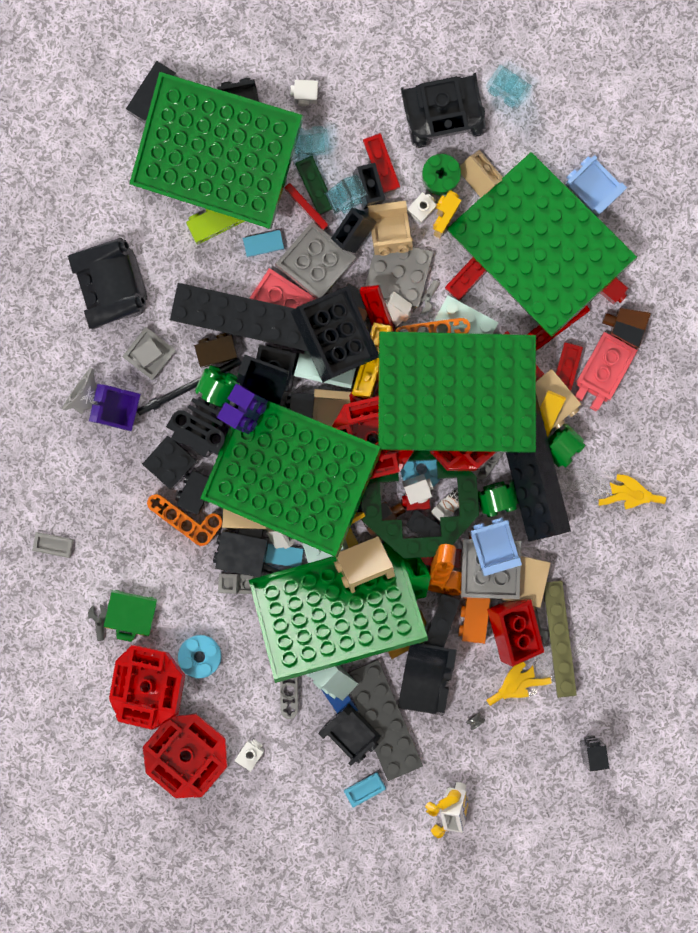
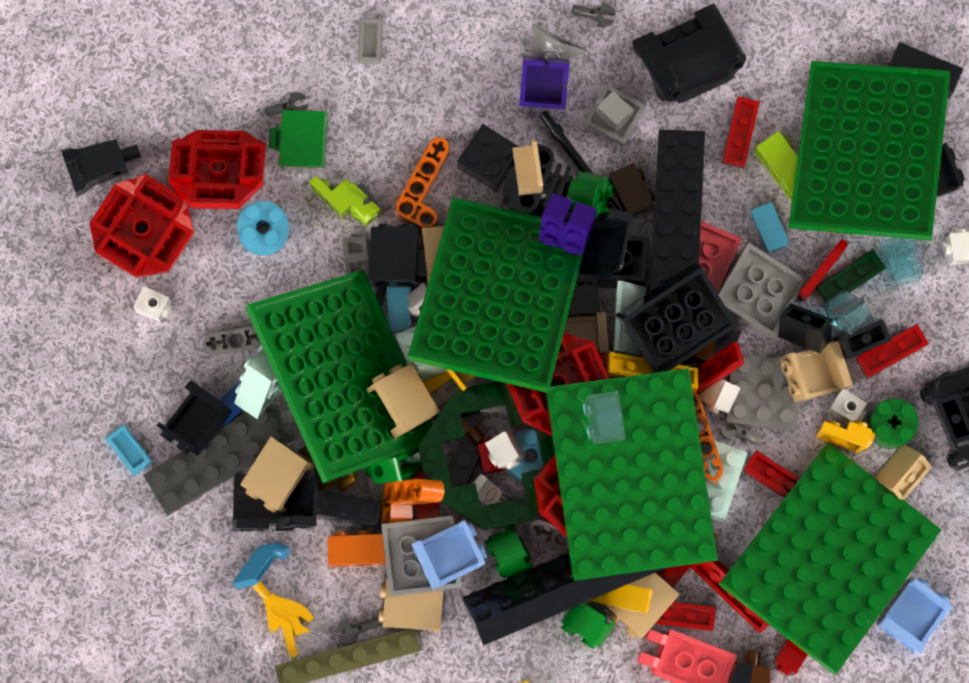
camera: 75 degrees right, 10 degrees down
(58, 356) = (596, 14): none -> dark grey bar
(124, 785) = (97, 164): none -> black piece
(180, 252) = (740, 132): none -> red plate
(186, 582) = (348, 198): none -> lime plate
(189, 433) = (528, 169): none -> tan panel
(190, 496) = (451, 185): black brick -> none
(406, 675) = (276, 474): none -> tan panel
(413, 406) = (604, 418): none -> clear light blue brick
(453, 810) = (118, 556): torso -> none
(473, 697) = (259, 564): none -> dark azure piece
(475, 721) = (230, 569): dark grey bush -> none
(515, 631) = (349, 600): red slope -> none

